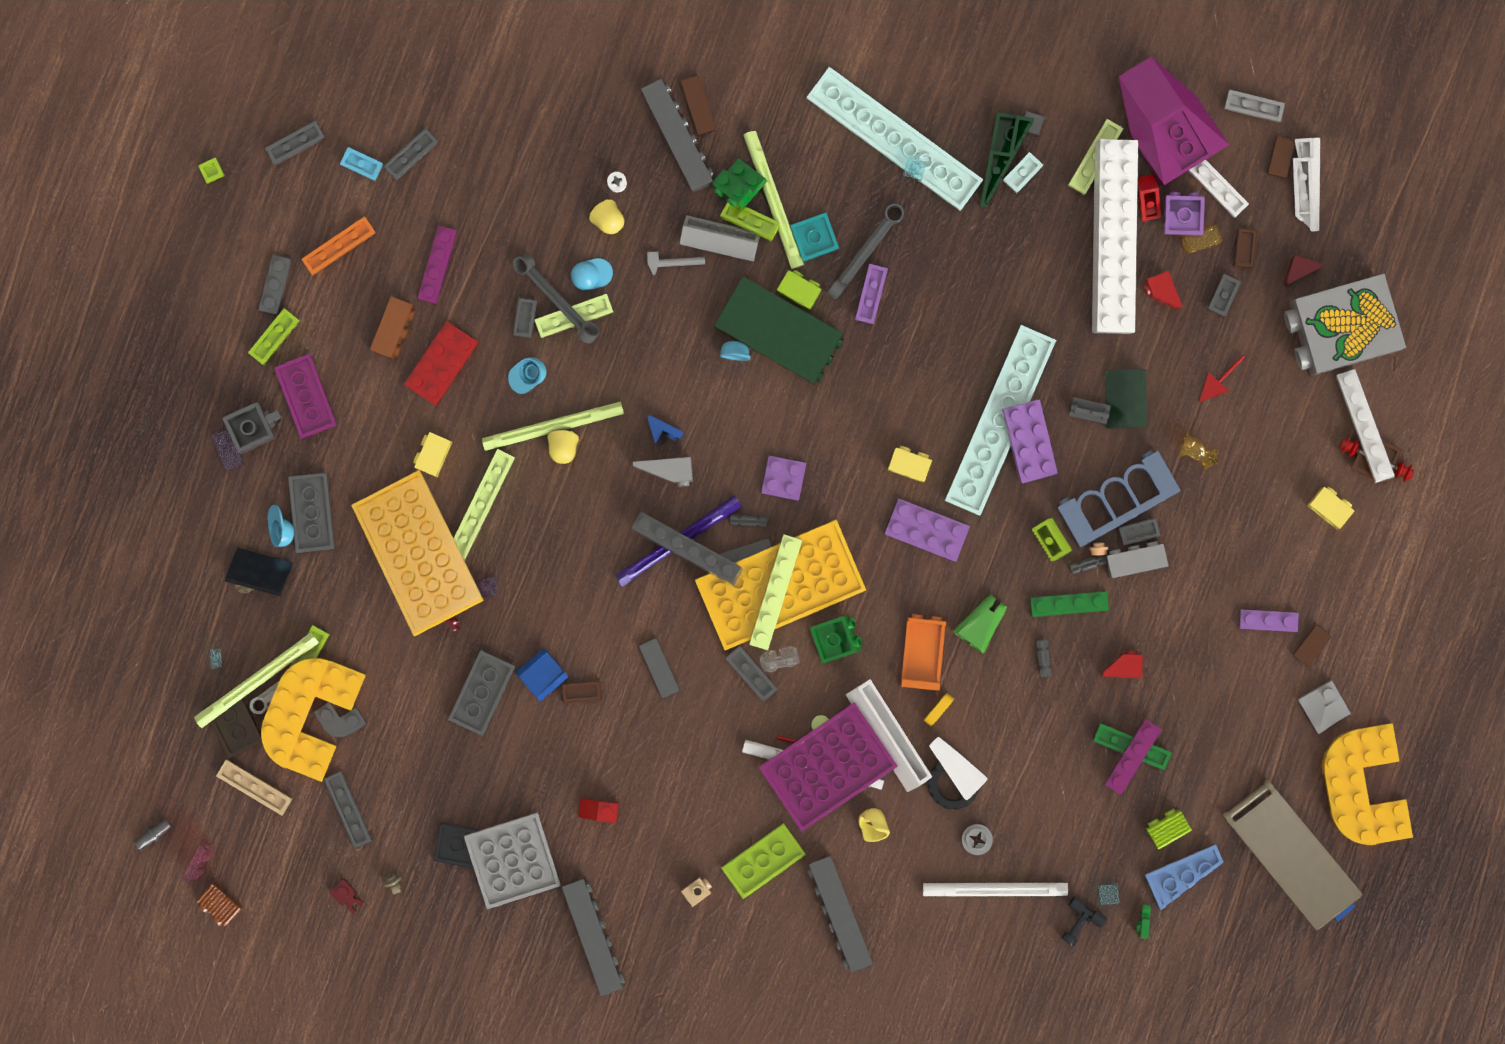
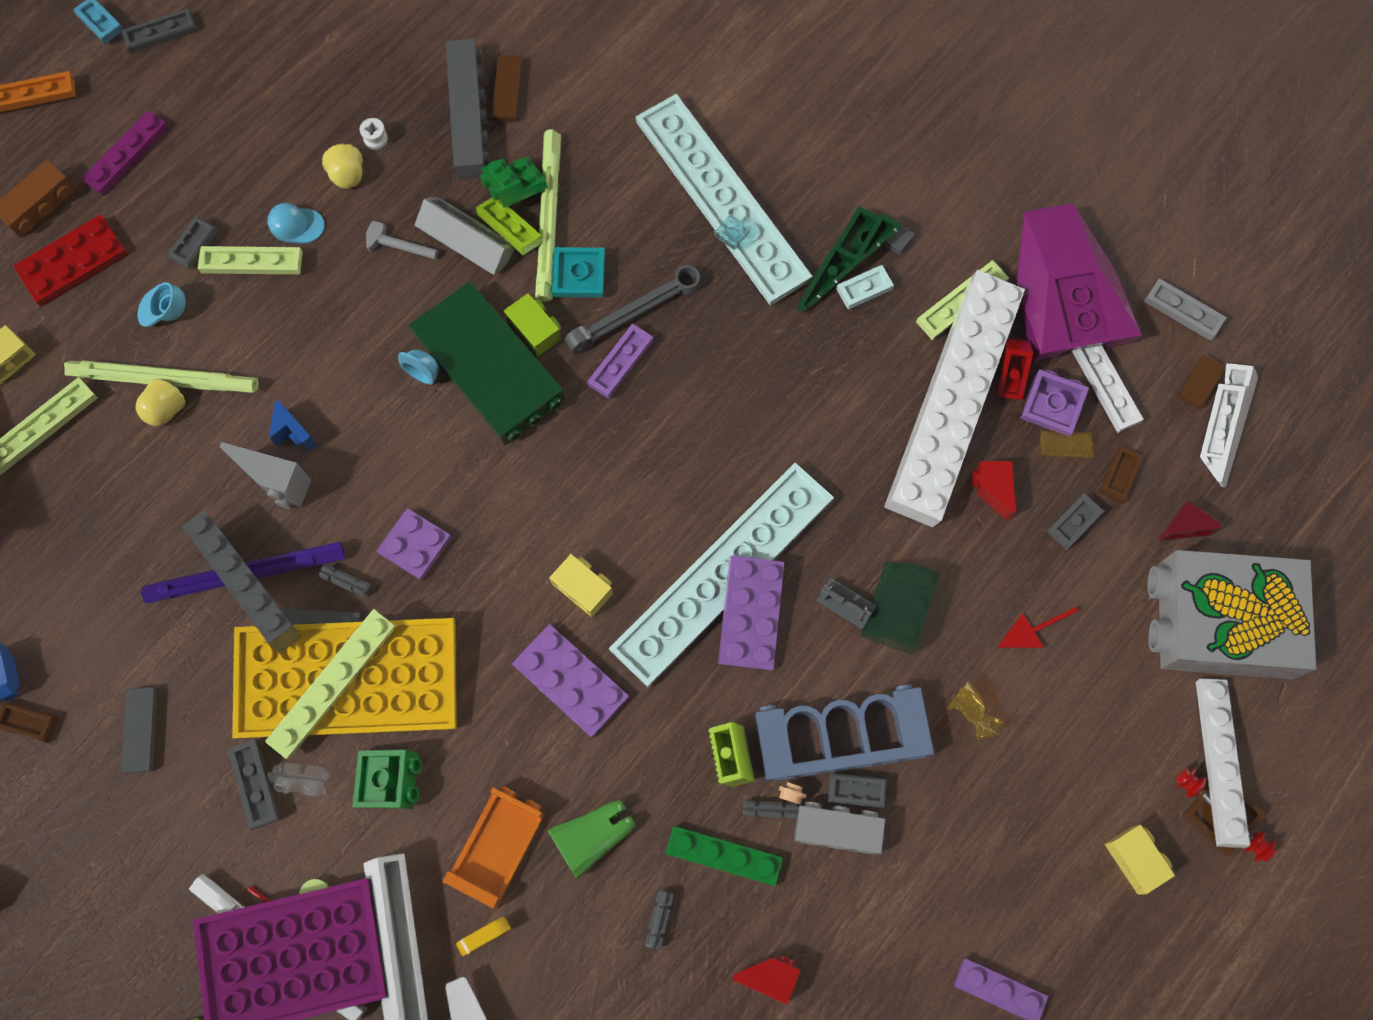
camera: 20 degrees right, 15 degrees down
(556, 298) = (222, 184): dark grey piece -> none

